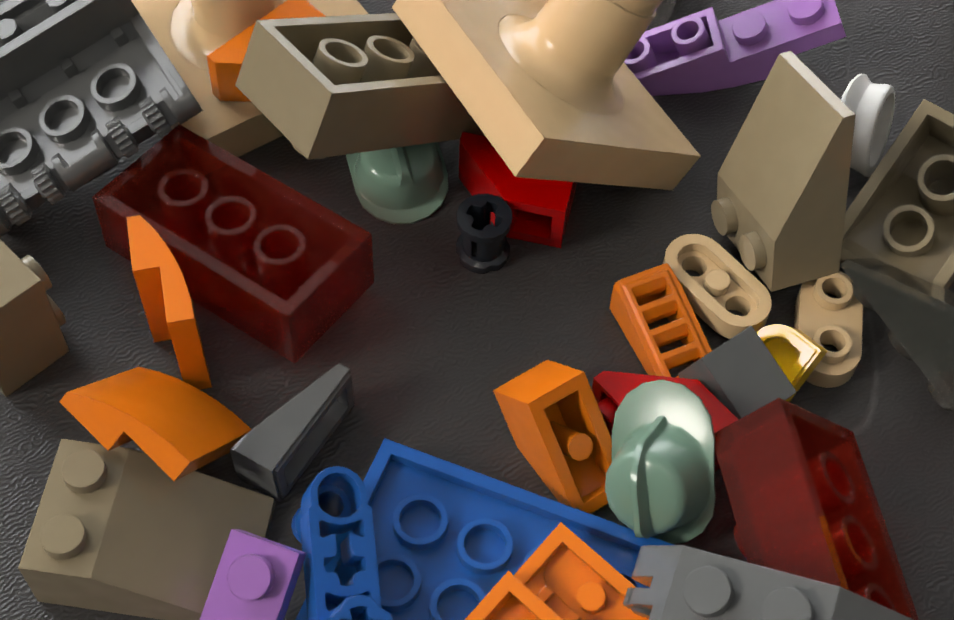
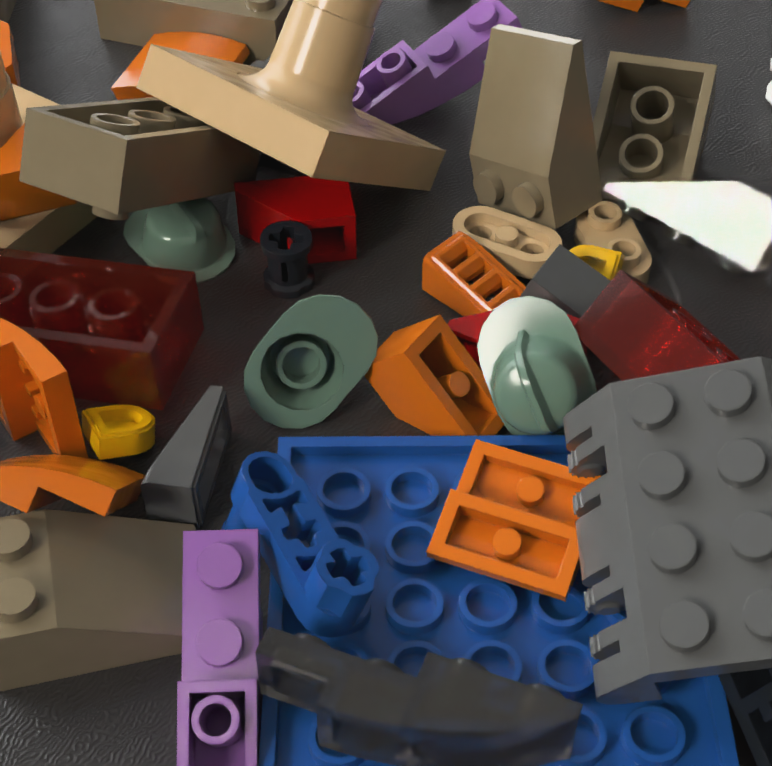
camera: 20 degrees left, 10 degrees down
(246, 372) = (118, 430): none -> yellow tile
(443, 370) = (310, 361): none -> sand green piece

